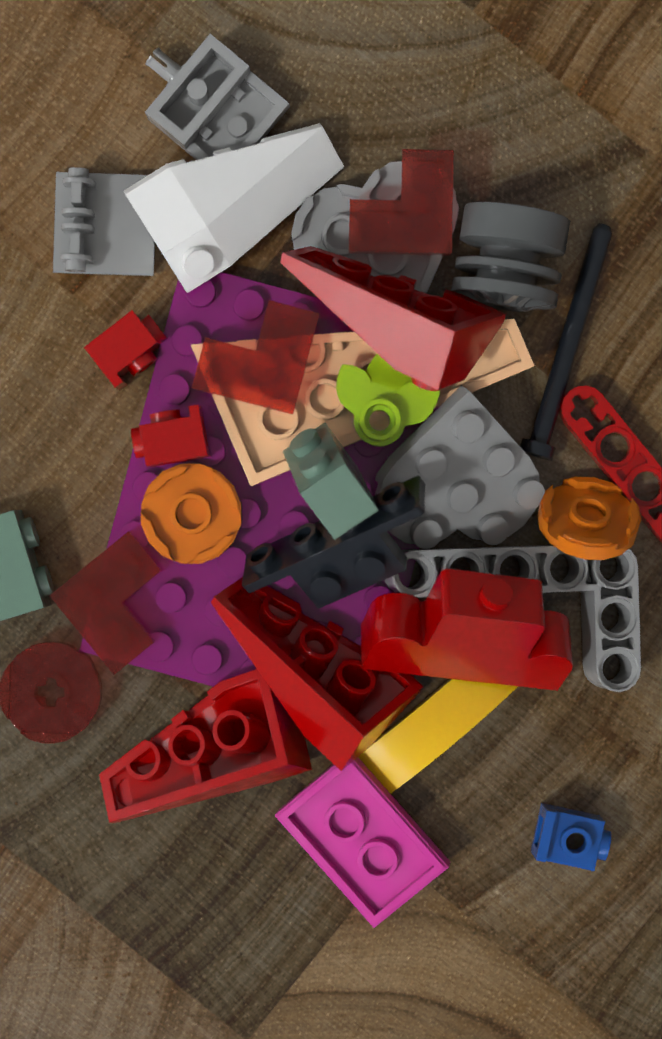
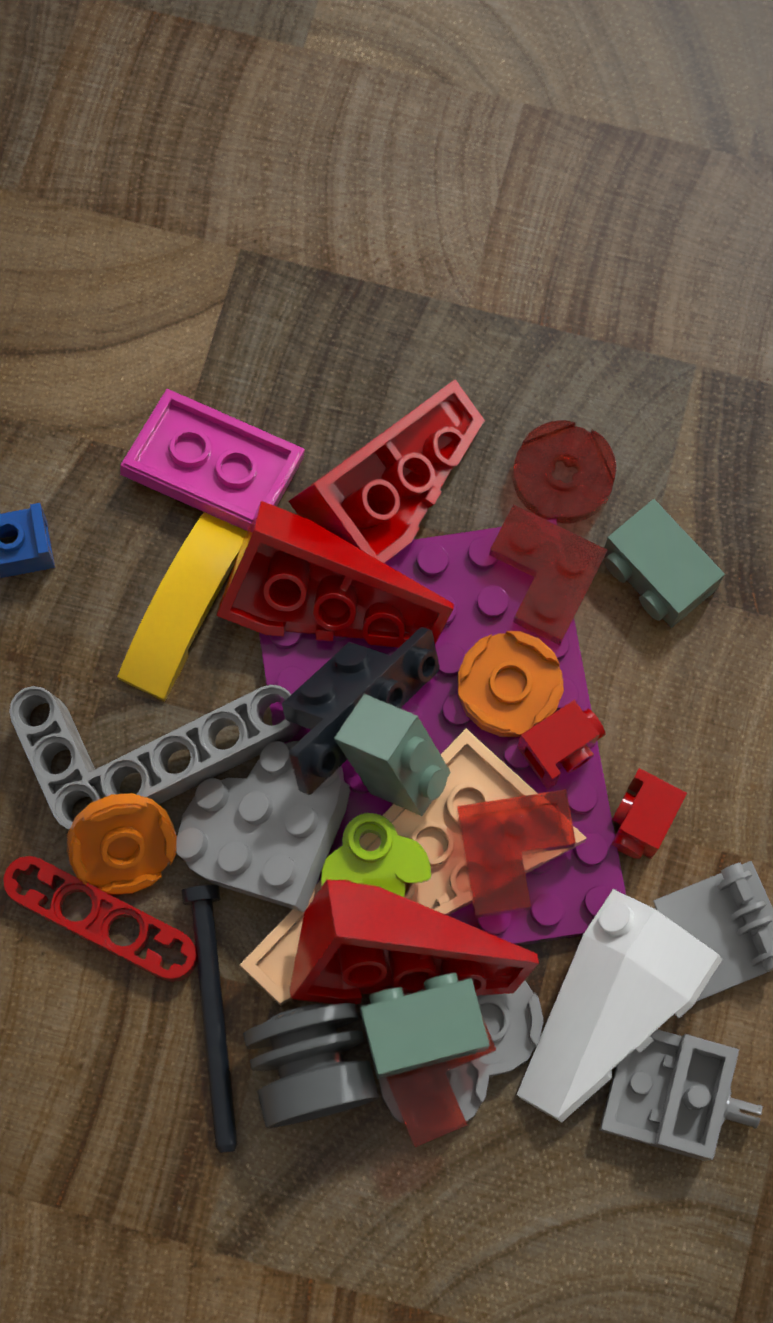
camera: 150 degrees right, 15 degrees down
(406, 239) = (424, 1025): none -> sand green brick
(470, 631) = (192, 679): red brick -> none

